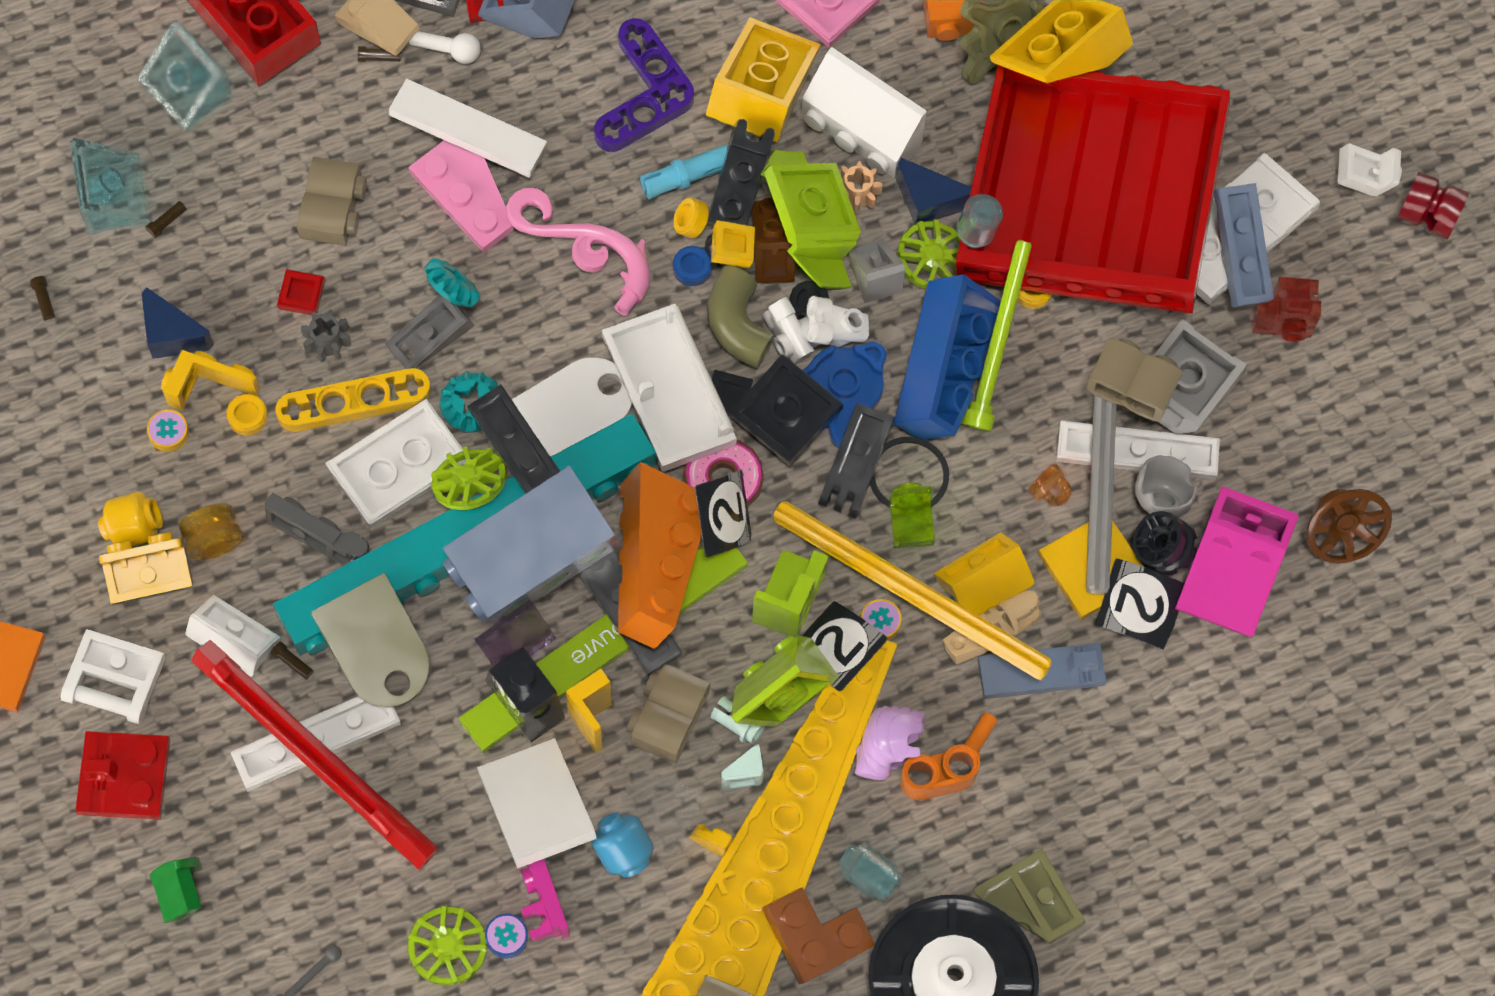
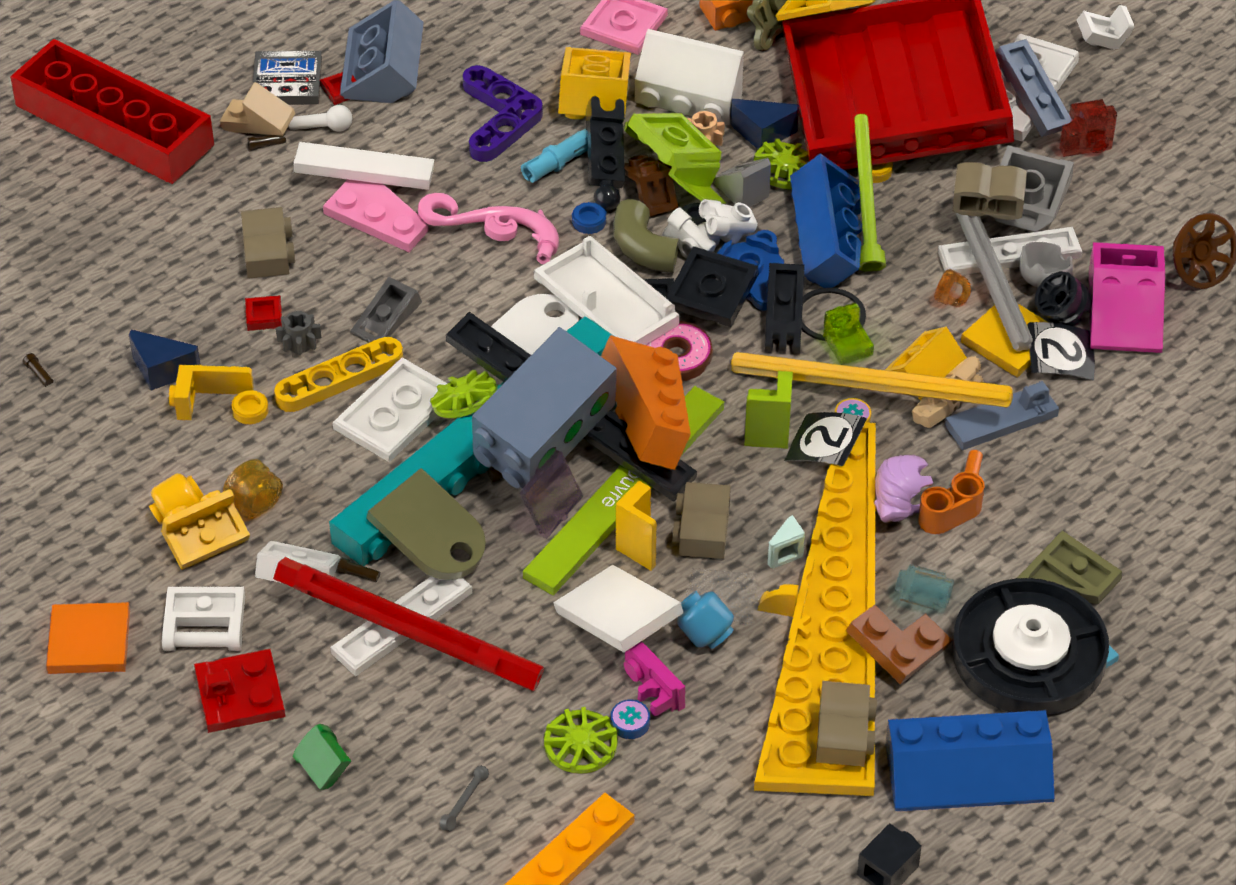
camera: 15 degrees left, 20 degrees down
(108, 186) = (67, 277): clear light blue slope -> none
(165, 219) = (119, 298): dark brown piece -> none
(167, 430) = (184, 434): tile -> none
(185, 77) = (109, 185): clear light blue slope -> none
(315, 532) = (340, 468): dark grey hinge -> none
(451, 283) = (392, 267): teal gear -> none
(453, 406) = (428, 359): teal gear -> none
(523, 691) = (577, 526): black torso -> none
(691, 217) = (575, 183): yellow tile -> none
(723, 513) = (691, 362): sticker -> none
(733, 244) = (620, 184): yellow plate -> none
(746, 732) = (764, 512): light aqua pin -> none
(782, 683) = (797, 463): lime slope -> none
(979, 220) = (818, 111): clear light blue brick -> none
(1433, 205) = (1167, 36): dark red wheel -> none

